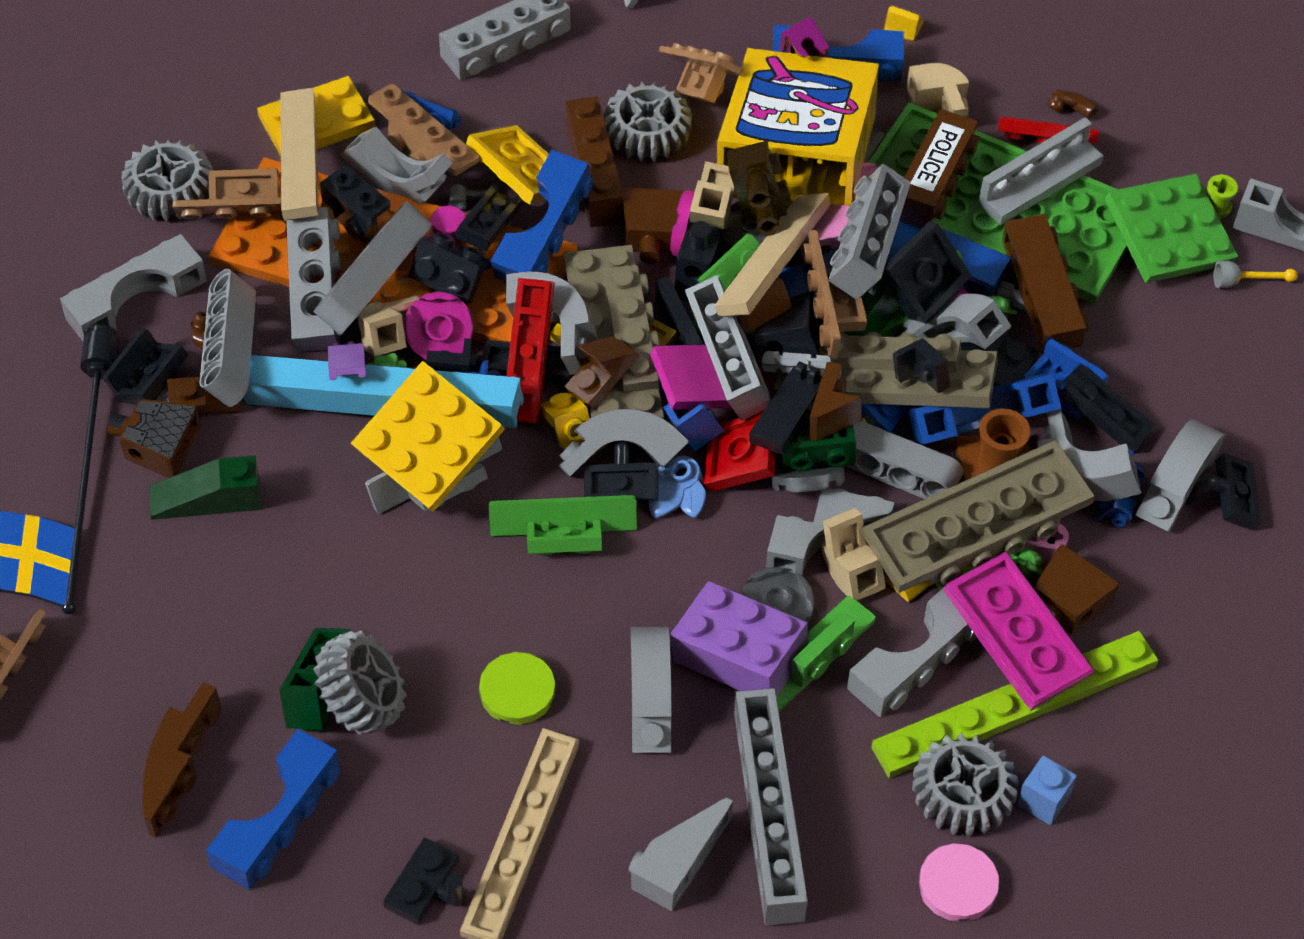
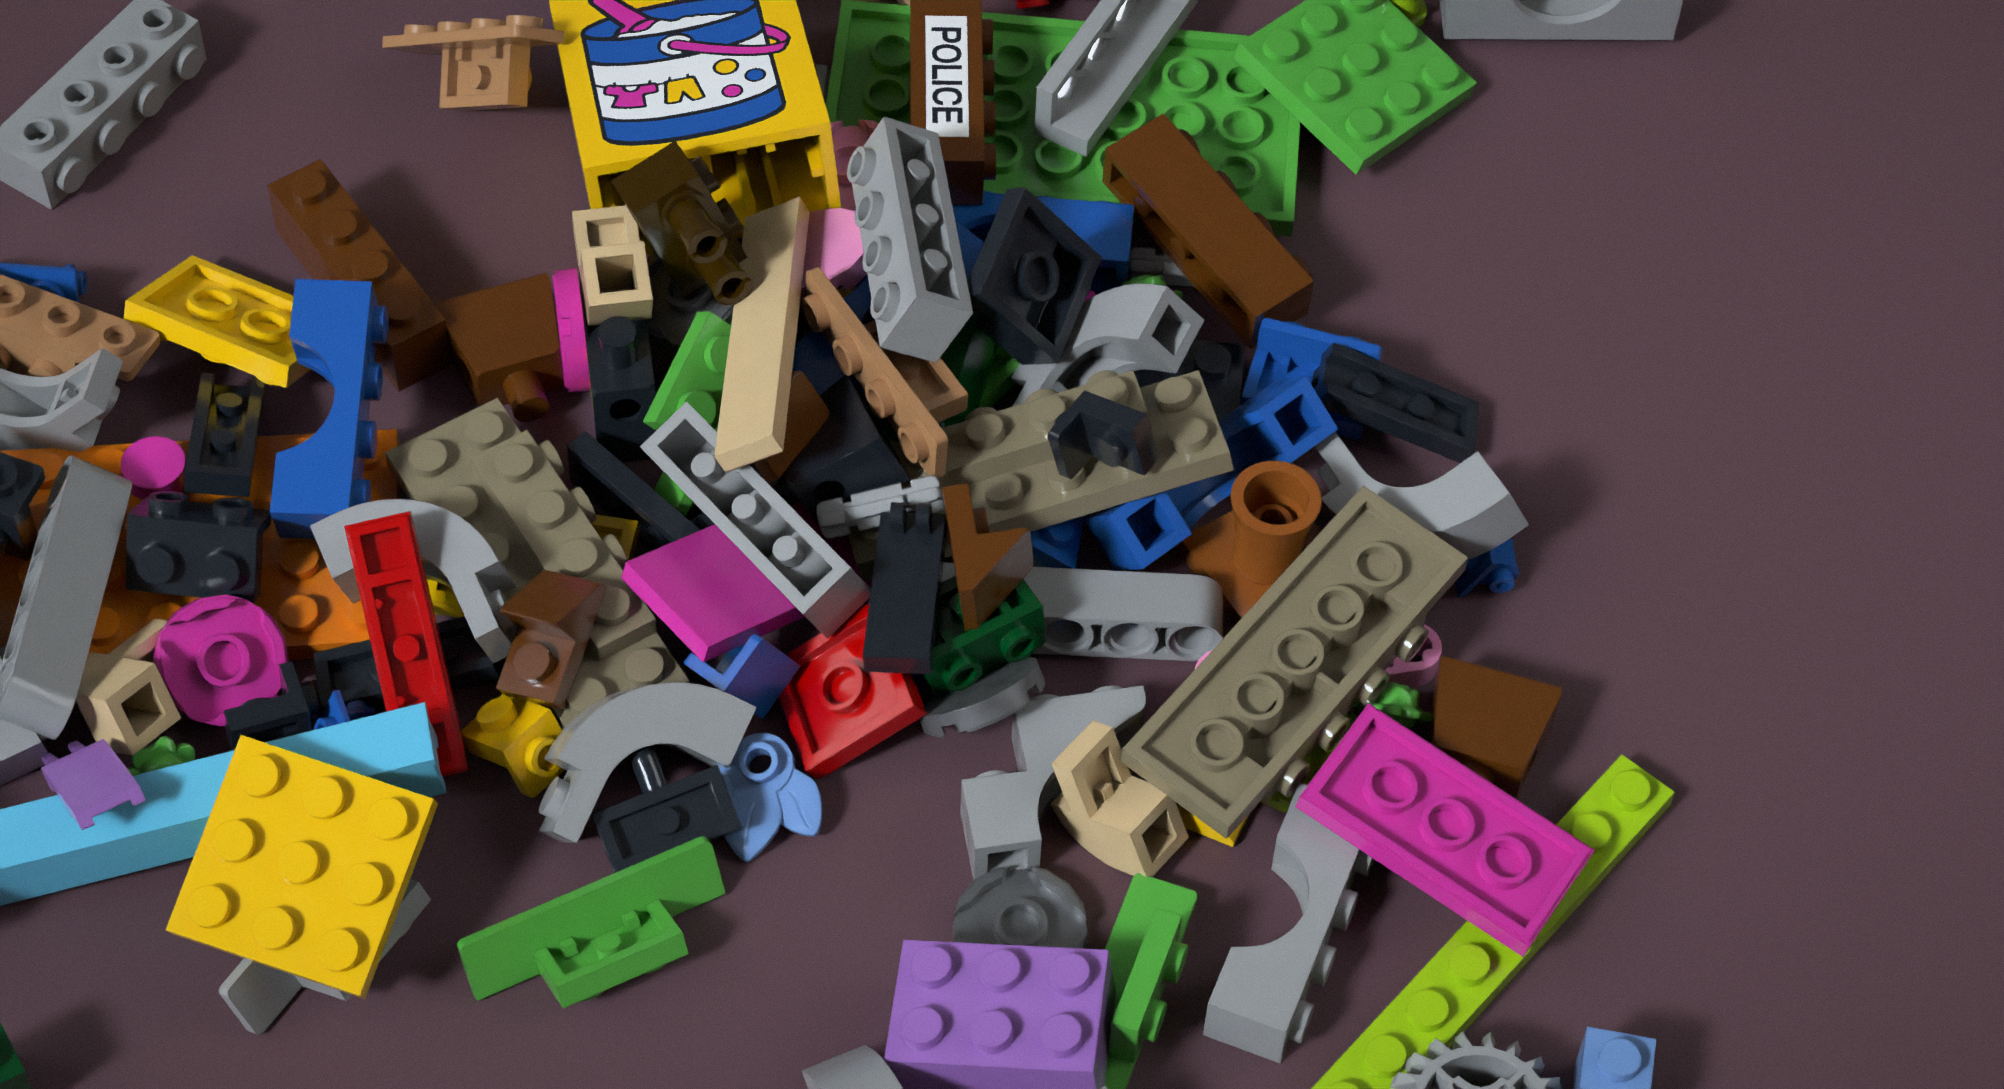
camera: 25 degrees left, 0 degrees up
(459, 196) = (148, 414): dark grey hand -> none
(648, 132) = (414, 159): light grey gear -> none
(1179, 471) = (1567, 470): light grey arch -> none
(1228, 274) = (1475, 115): hinge -> none
(1237, 491) = (1660, 464): black plate -> none

